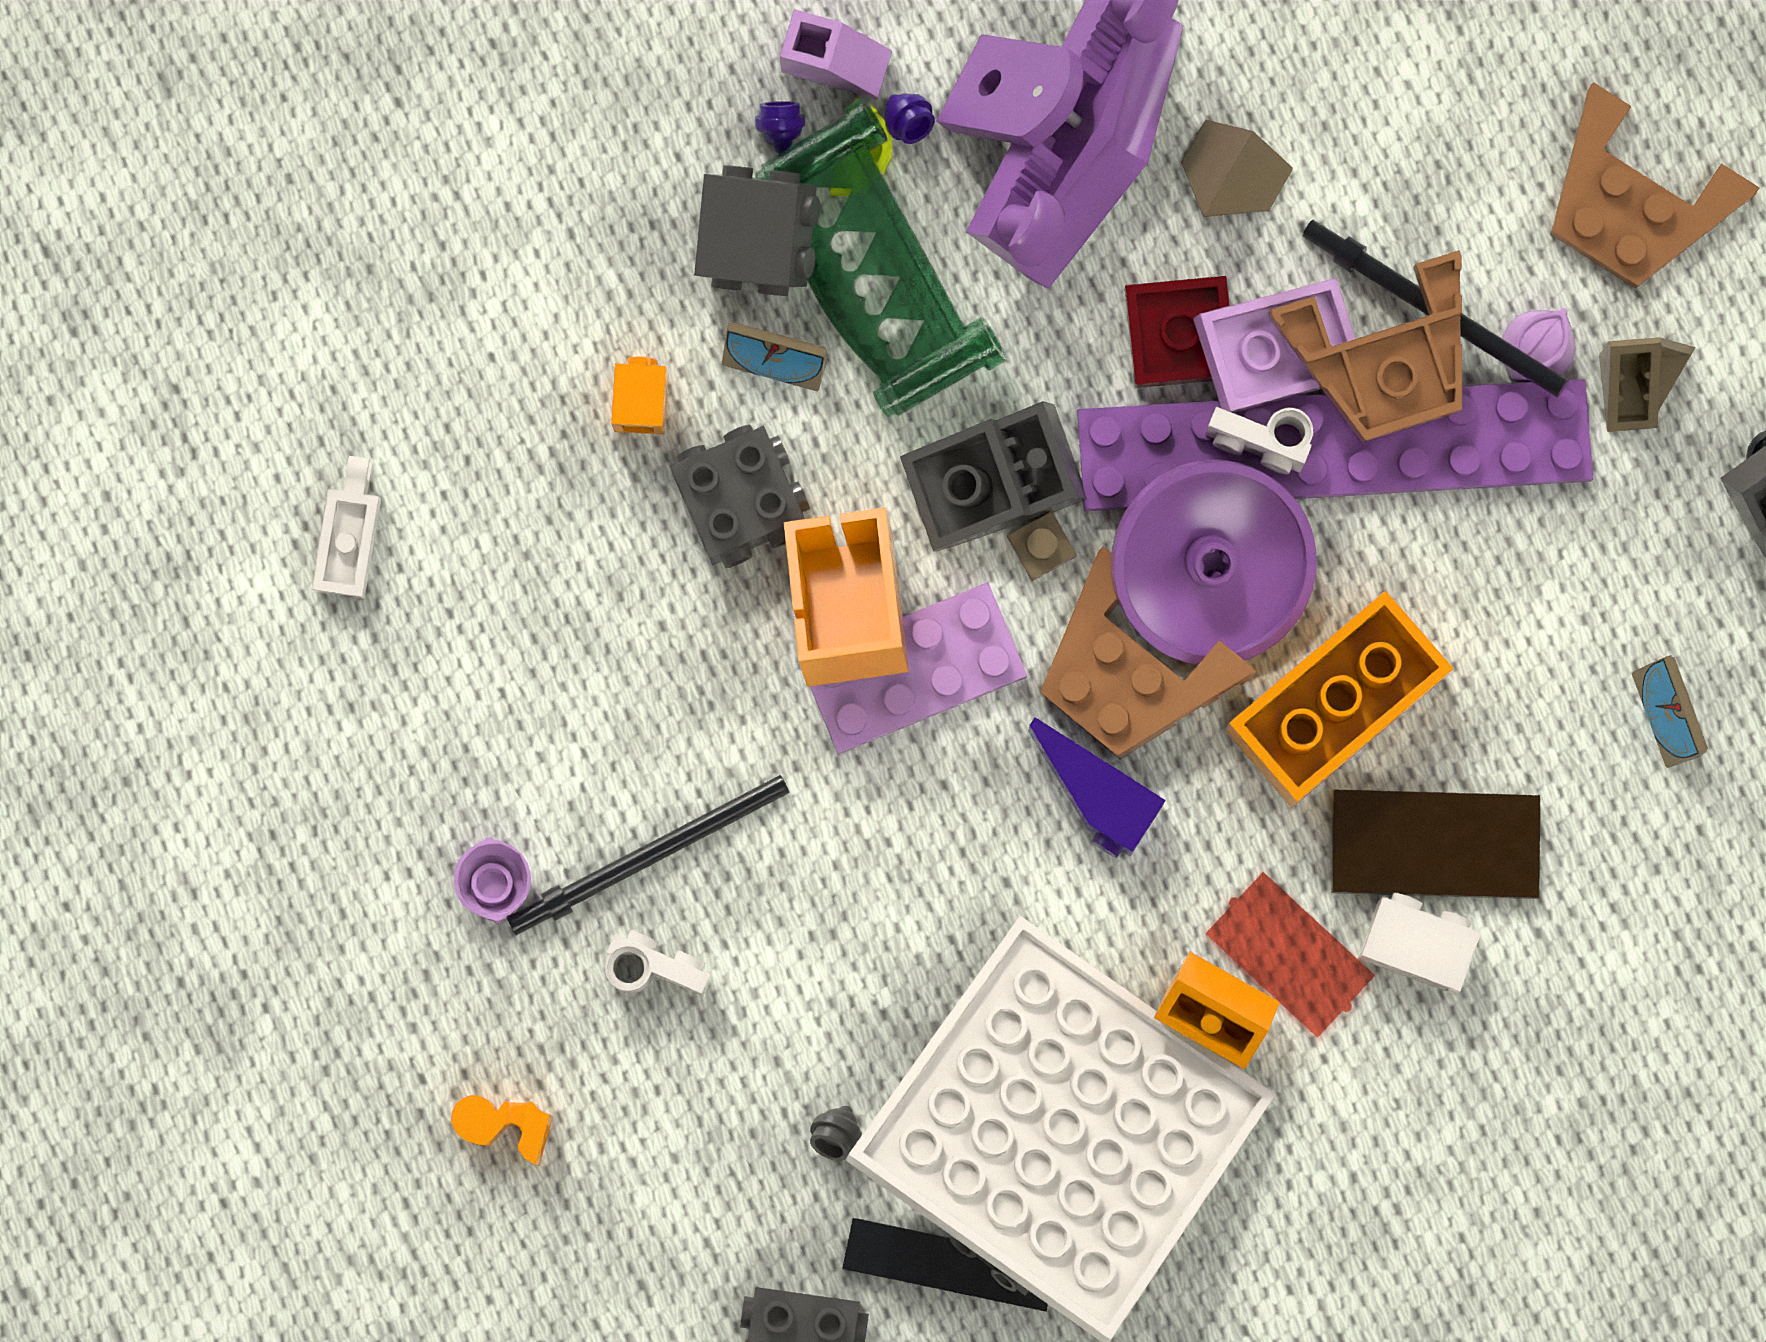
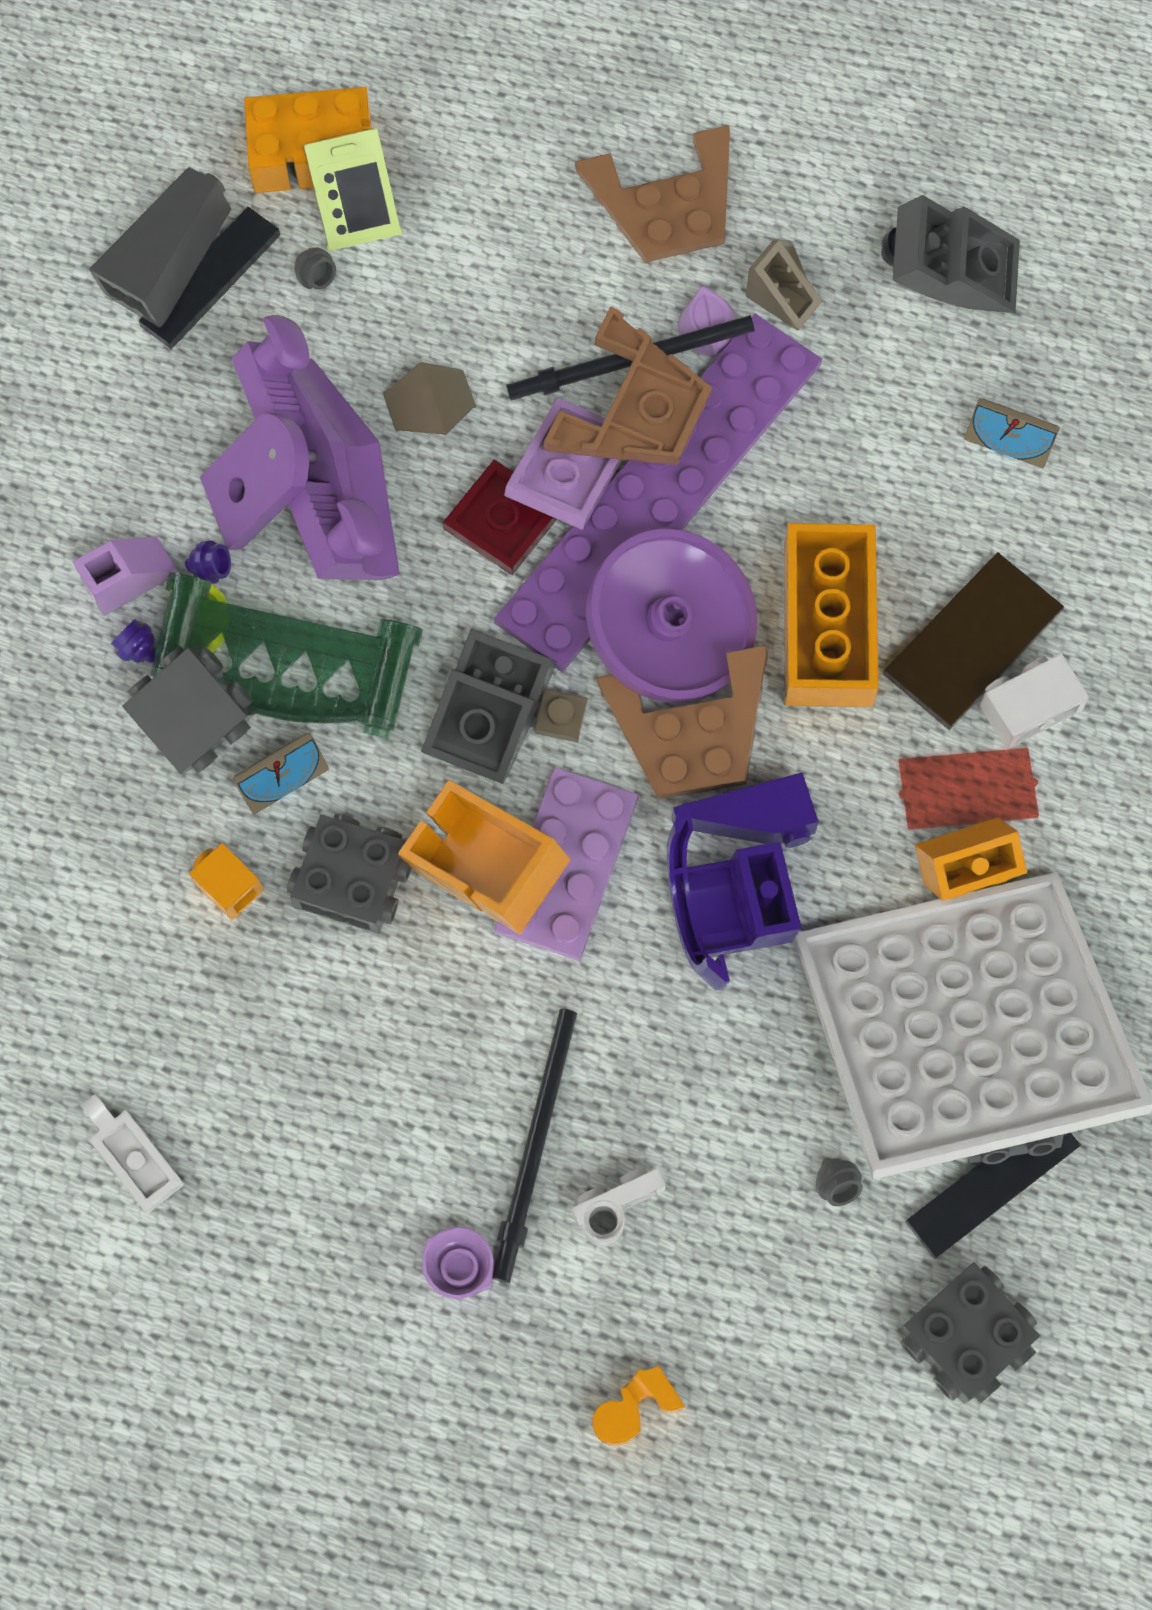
camera: 50 degrees left, 10 degrees down
(992, 836) = (729, 902): none -> dark purple piece
(1237, 434) = (607, 526): white plate -> none

